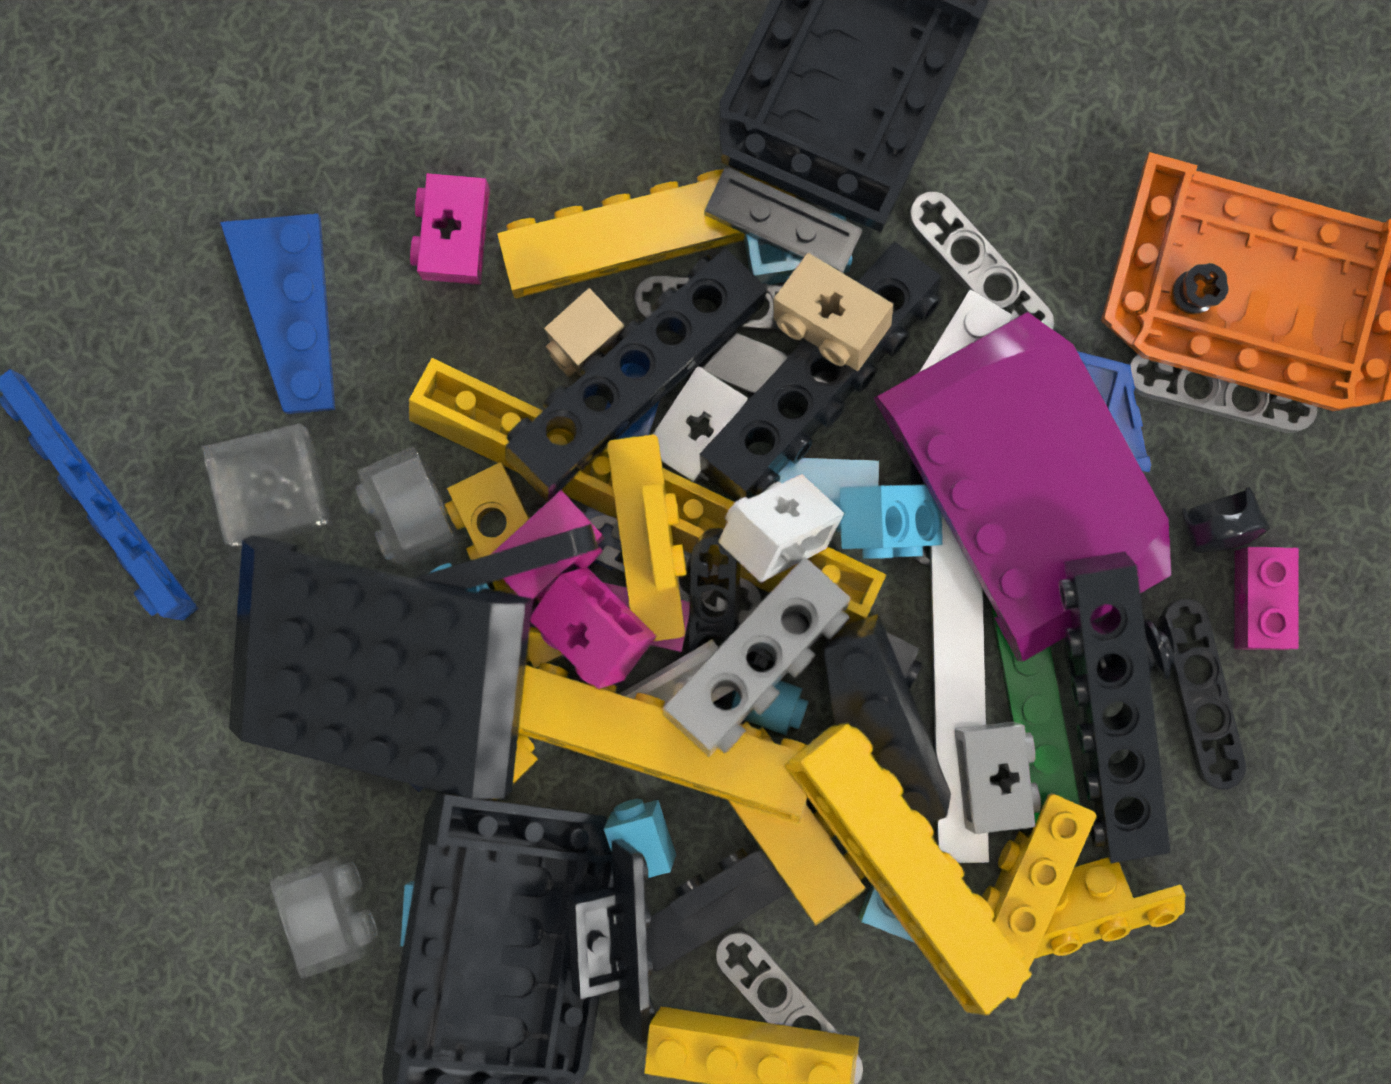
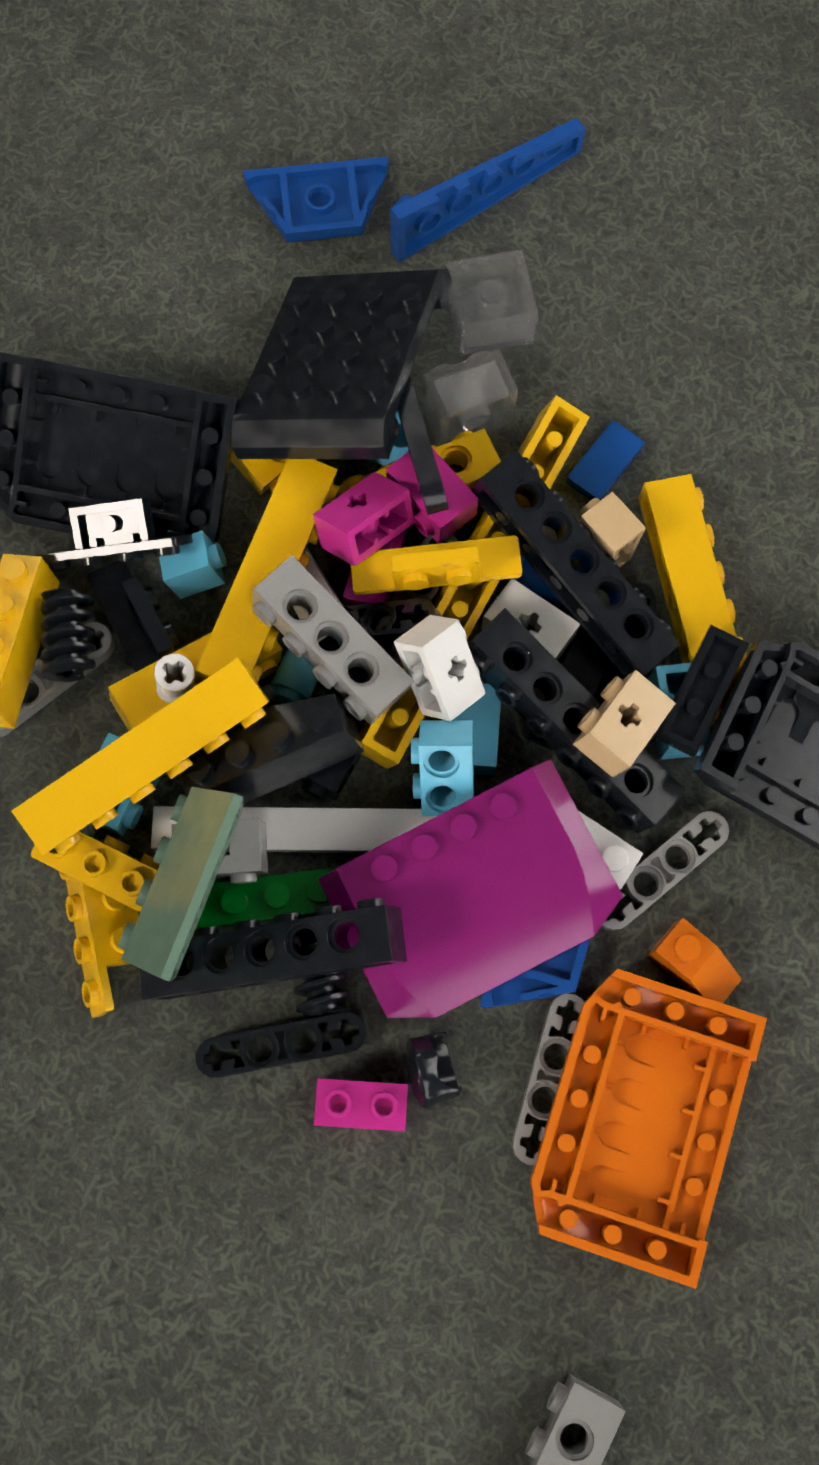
camera: 90 degrees right, 10 degrees down
(112, 717) = (319, 197): none -> blue wing
(287, 297) = (641, 329): blue wing -> none
(324, 915) = (153, 325): clear brick -> none
(461, 255) = (711, 457): dark pink brick -> none
(472, 339) = (605, 462): none -> blue tile
(743, 982) = (65, 635): none -> black piece
(802, 827) = (172, 666): none -> white bush
(1062, 806) = (182, 881): none -> sand green slope
(1086, 232) = (695, 962): none -> orange slope
(1214, 290) = (656, 1053): black bush -> none

